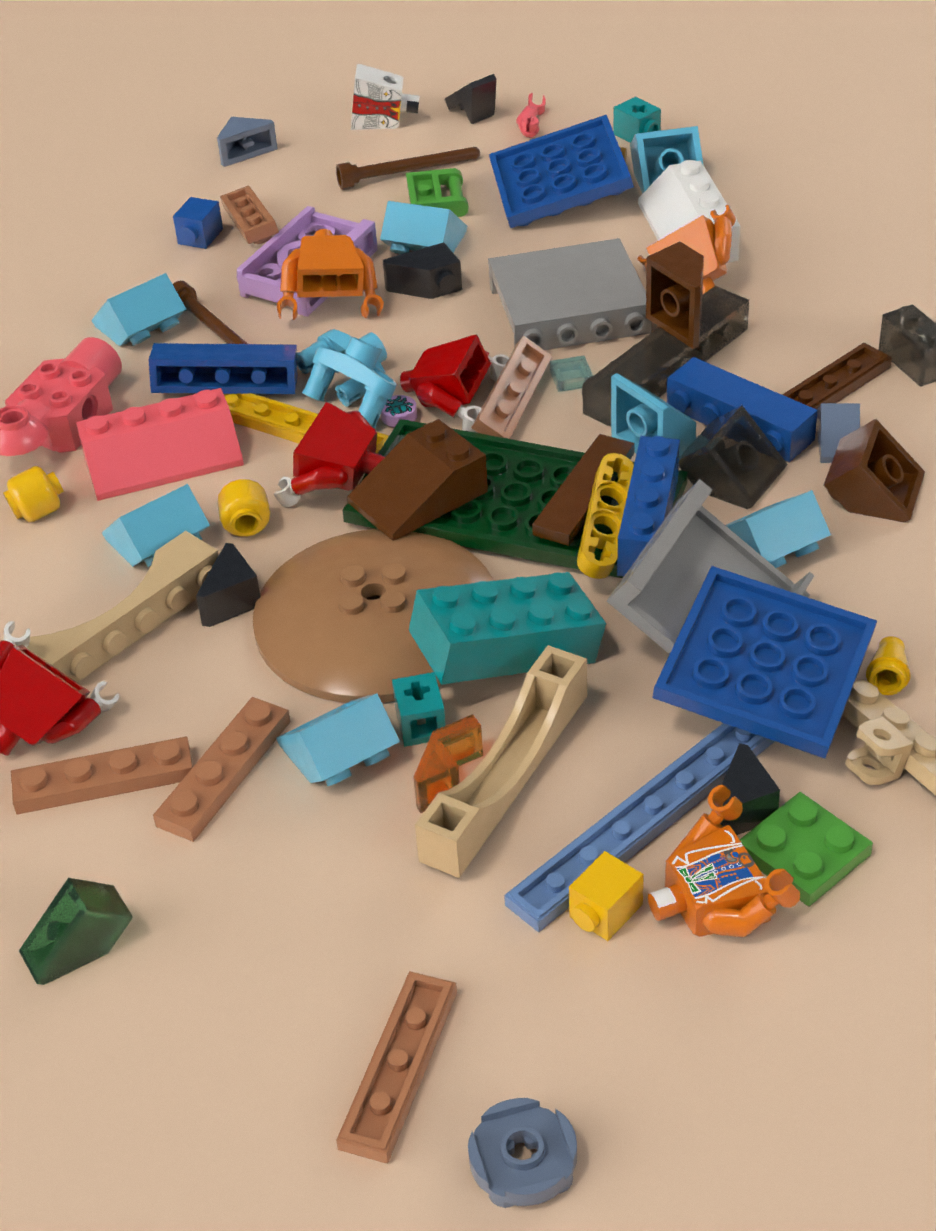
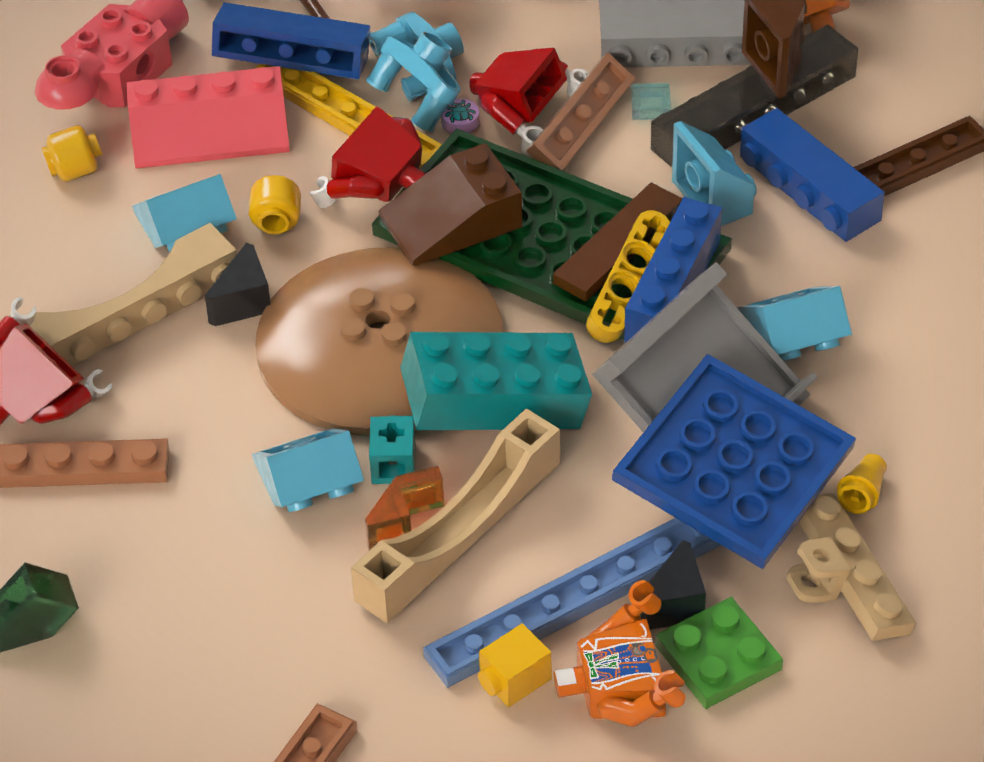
camera: 10 degrees right, 5 degrees up
(221, 769) = (194, 476): nougat plate -> none
(733, 459) = (782, 232): clear smoke slope -> none
(834, 423) = (904, 220): sand blue slope -> none
(874, 475) = (923, 274): reddish brown slope -> none

